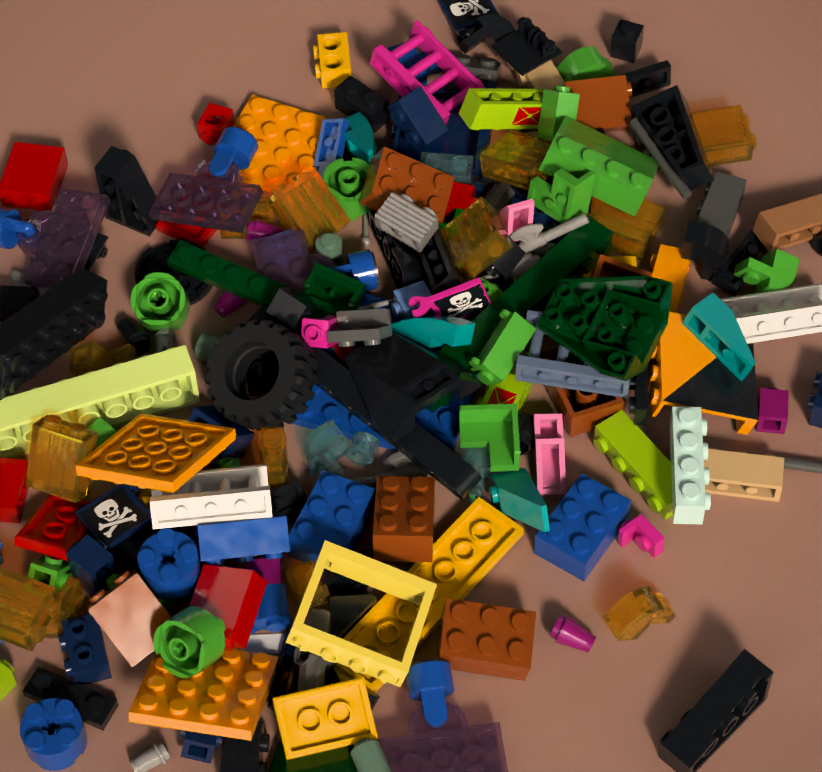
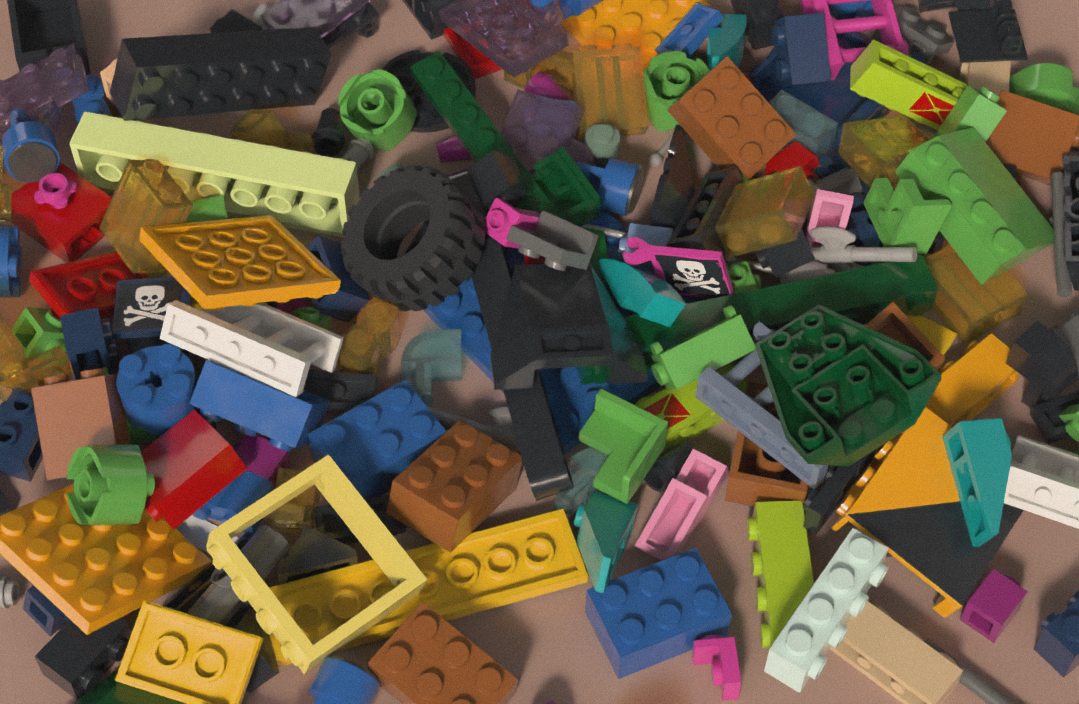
camera: 30 degrees right, 0 degrees up
(363, 448) = (475, 382): clear light blue wheel -> none
(407, 221) = (696, 151): light grey brick -> none

